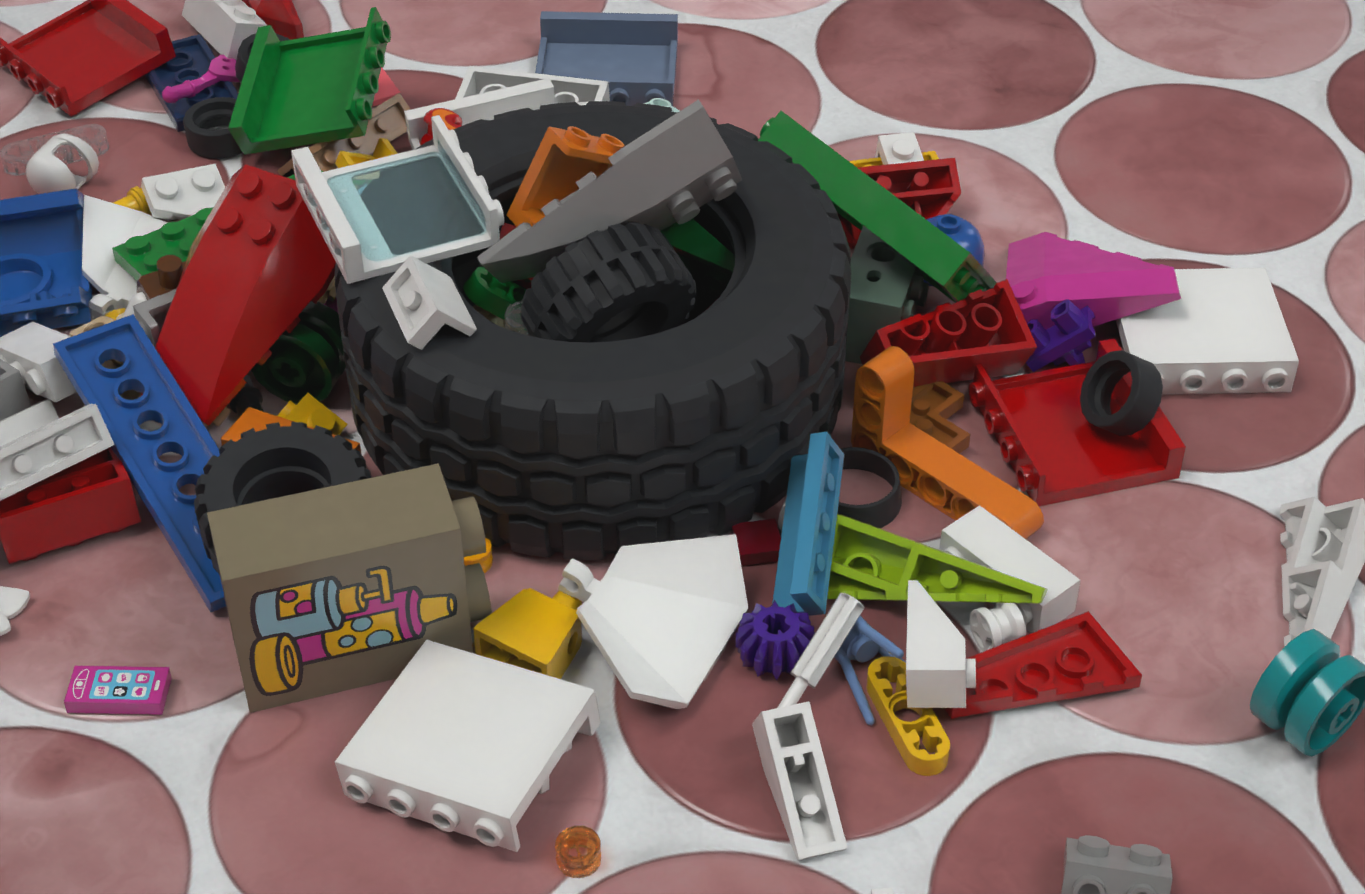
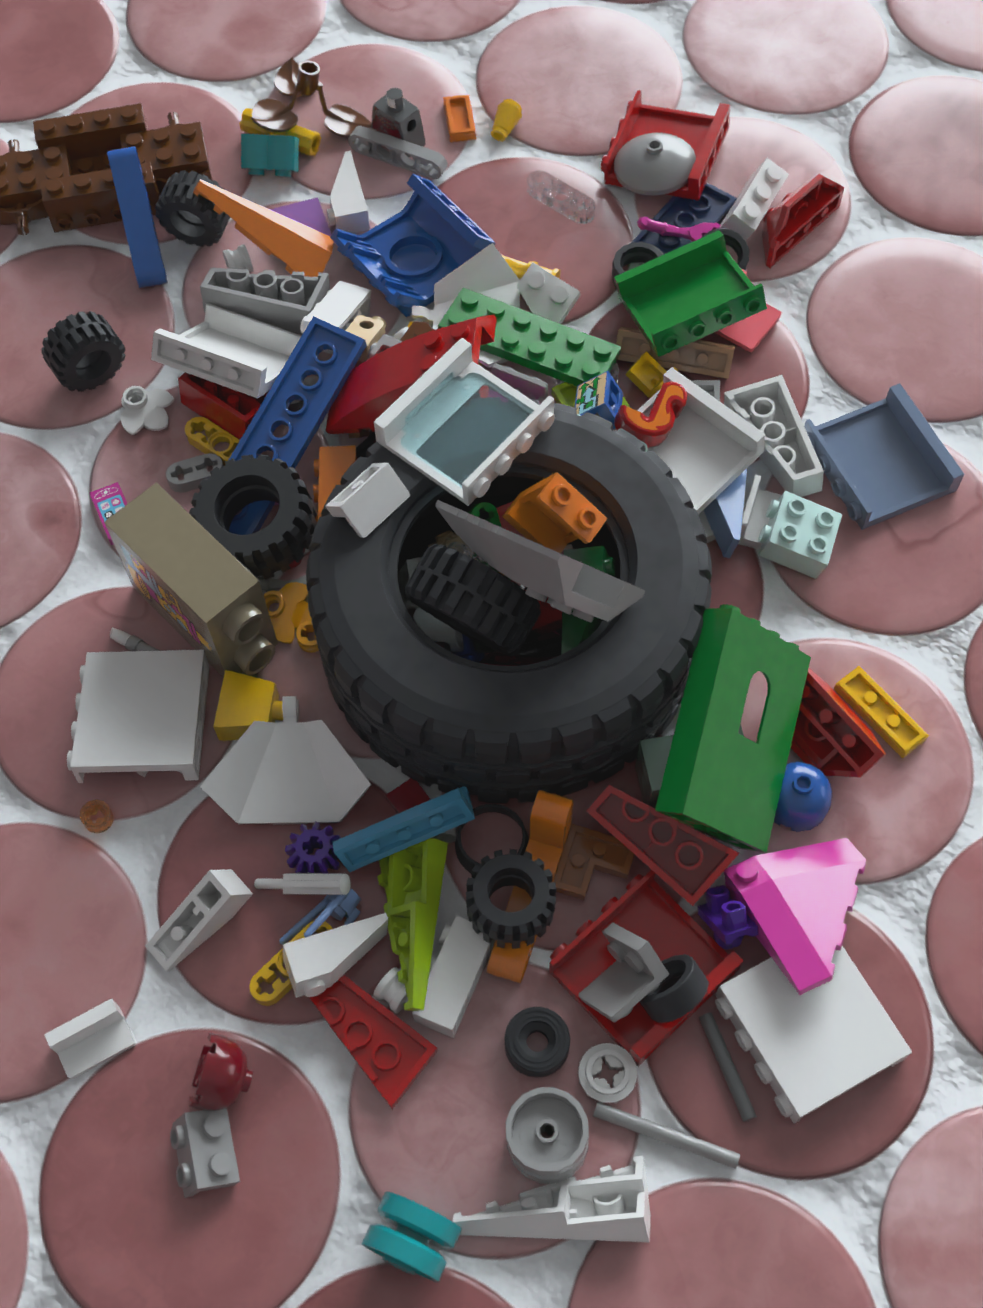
camera: 65 degrees right, 20 degrees up
(50, 174) = (531, 208): white helmet -> none
(82, 547) = (213, 433): none -> yellow beam
(99, 61) = (654, 164): none -> light grey dish
(141, 588) = (194, 472): none -> light grey beam
(338, 734) = (130, 642): none -> piece
(898, 148) = (895, 711): white bracket -> none
(958, 462) = (510, 871): none -> black tyre
(1023, 820) = (220, 1074): none -> dark red cylinder
(1089, 414) = (626, 980): none -> light grey bracket
(1117, 553) = (542, 1021): none -> black tyre
(1196, 492) = (617, 1059): none -> white gear
(1219, 410) = (727, 1067): none -> dark grey bar
(1236, 551) = (550, 1112): none -> light grey wheel
(1264, 480) = (666, 1135): none -> light grey bar

